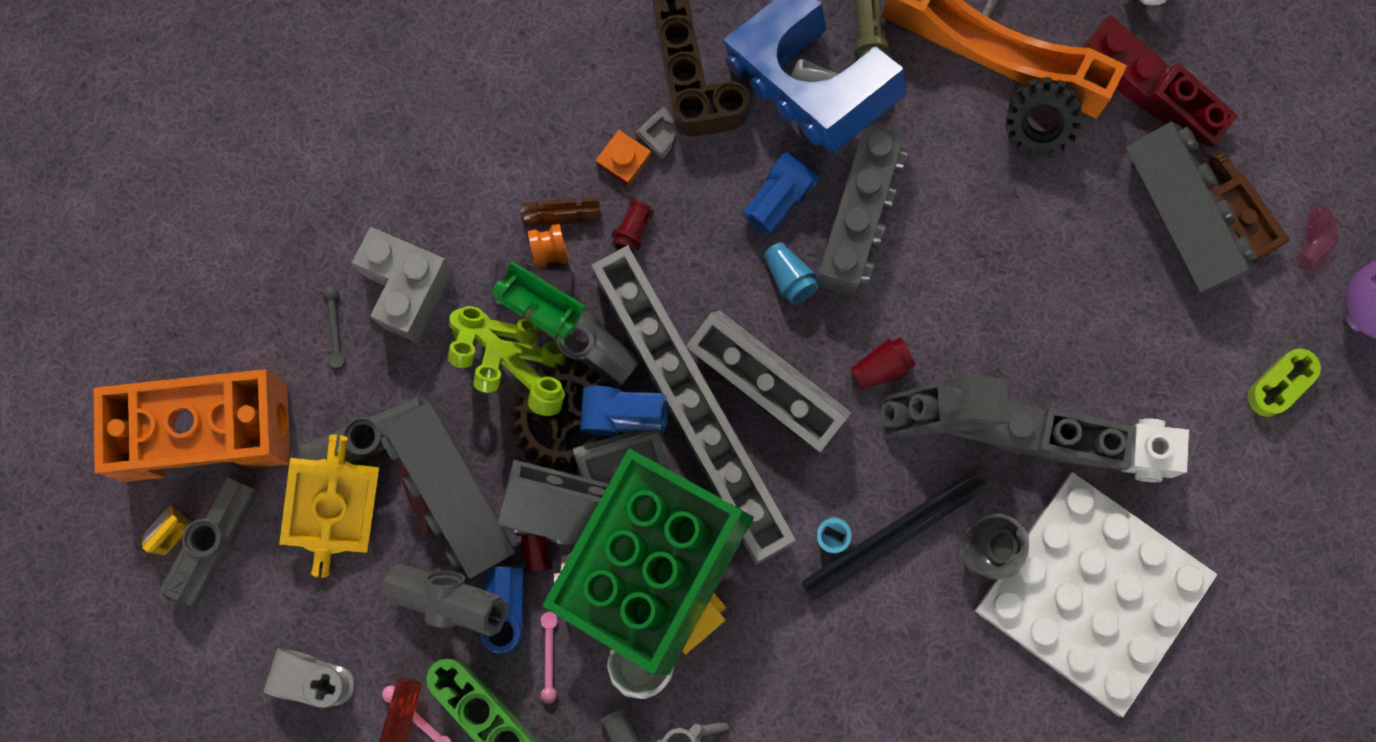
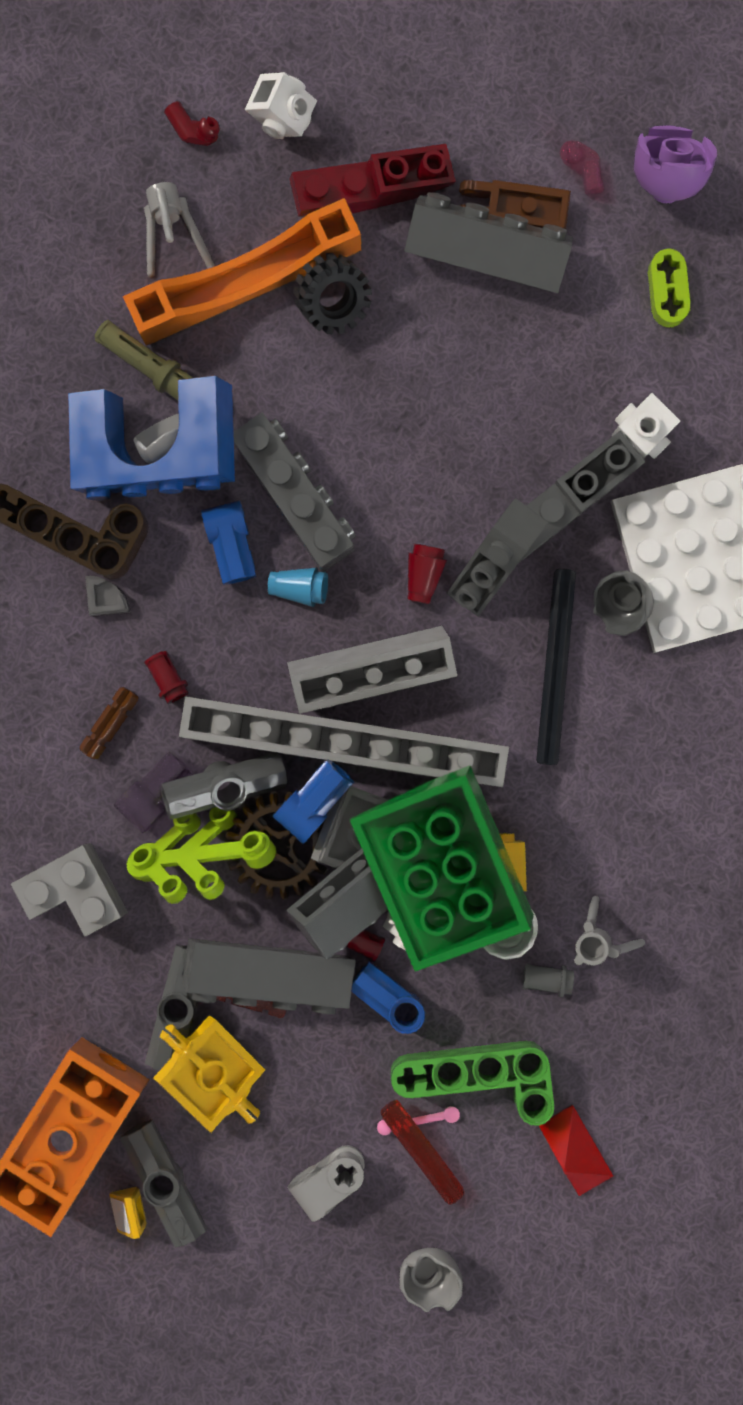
camera: 60 degrees left, 10 degrees up
(336, 359) = (92, 984): dark grey hinge -> none
(445, 599) = (349, 1038): dark grey piece -> none
(548, 247) = (132, 755): orange wheel -> none
(549, 622) = (474, 1010): bright pink hinge -> none
(552, 308) = (163, 806): green hinge -> none
(623, 158) = (103, 640): orange plate -> none
(829, 542) = (524, 719): medium azure hinge -> none

